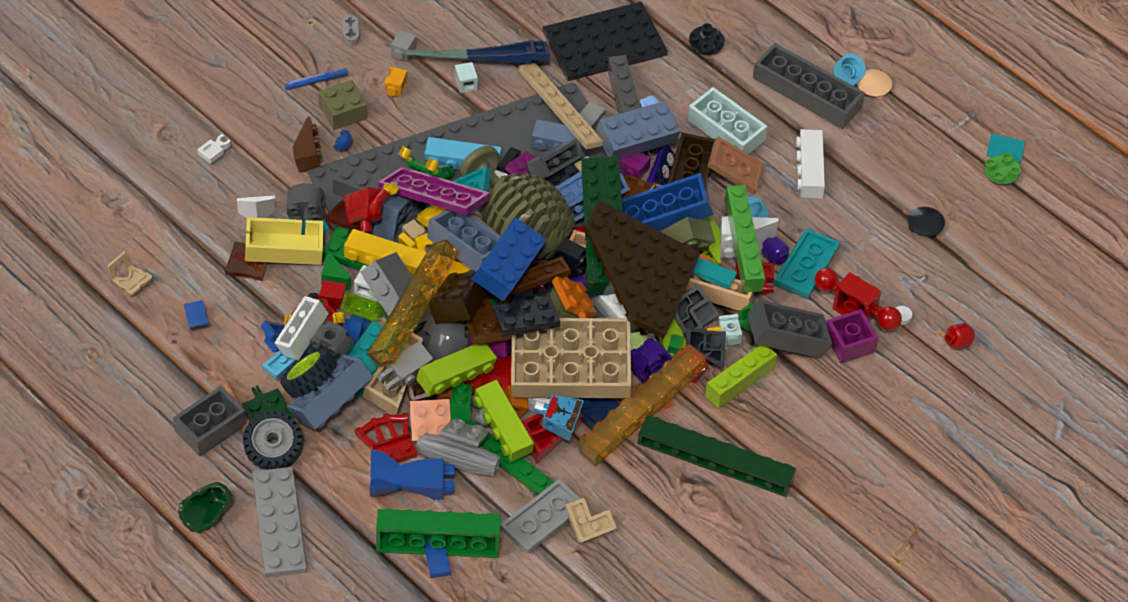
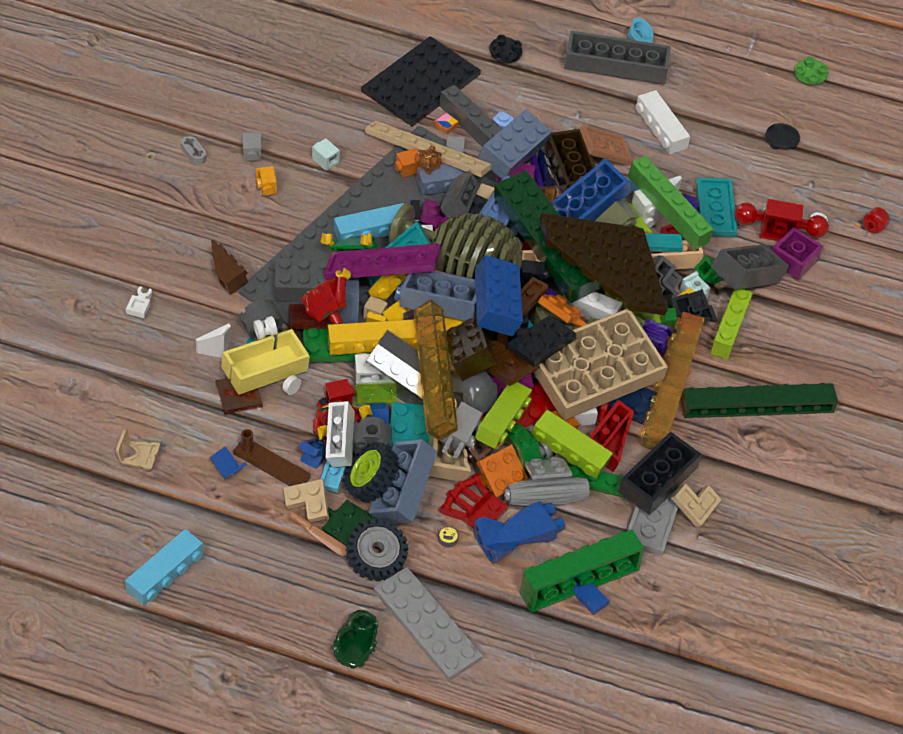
camera: 30 degrees left, 0 degrees up
(88, 380) = (164, 567): none -> medium azure brick
(209, 420) = (306, 556): dark grey brick -> none
(236, 330) = (269, 461): none -> reddish brown piece
(249, 374) = (309, 494): none -> tan plate
(296, 210) = (265, 327): none -> white wheel
(297, 271) = (291, 385): none -> white tile
(316, 78) = (170, 218): blue piece -> none
(334, 272) = (326, 372): green slope -> none
(343, 104) = (233, 218): olive brick -> none
(343, 141) = (254, 251): blue plate -> none
(346, 457) = (448, 536): none -> tile
(512, 53) = (357, 116): dark blue plate -> none
(534, 111) = (406, 163): none -> orange brick
(548, 115) = (428, 159): none -> clear orange rock
(560, 415) = (620, 418): dark azure torso -> none
(566, 478) = (659, 473): none -> black brick
(601, 89) = (446, 123): none -> tile
(722, 117) = (571, 110): light aqua brick -> none
(875, 83) = (666, 36): light nougat dish -> none
(1000, 144) = (797, 52): teal window -> none

